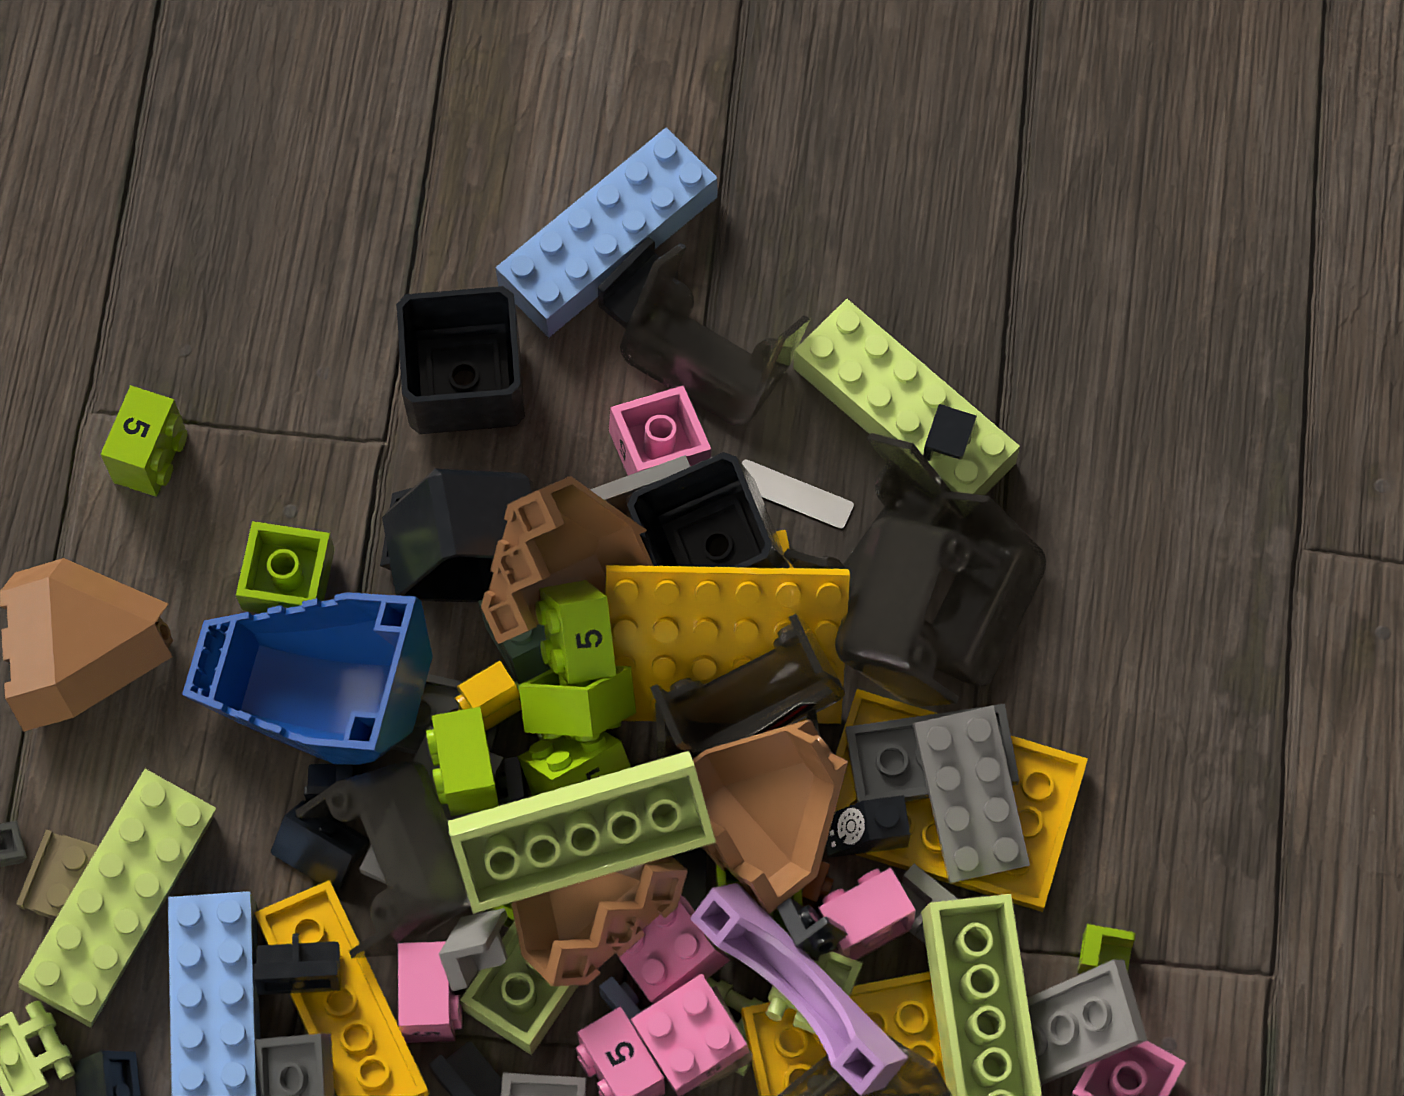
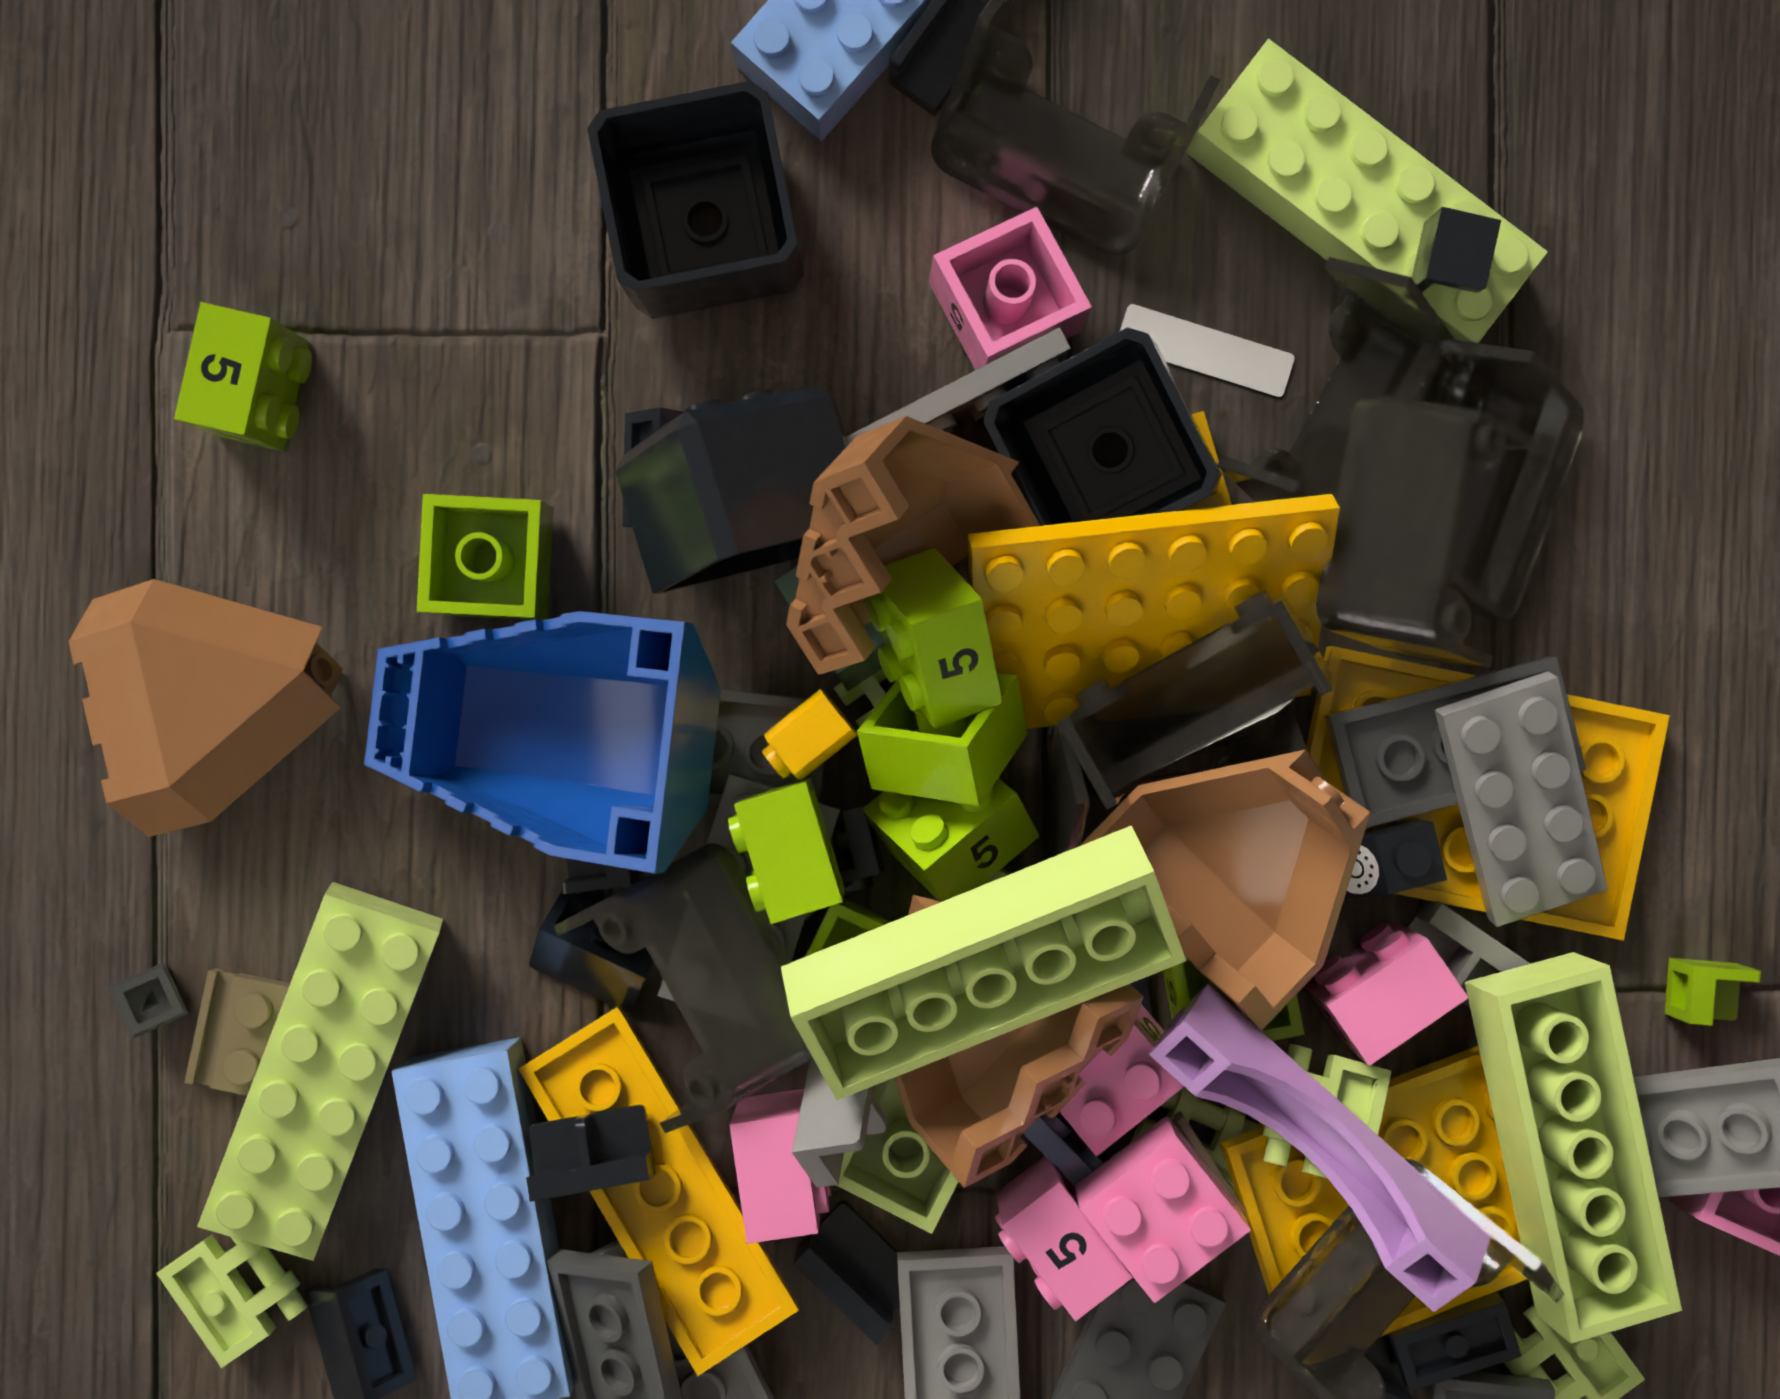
camera: 10 degrees left, 20 degrees up
(810, 931) = (1312, 1043): black bracket -> none

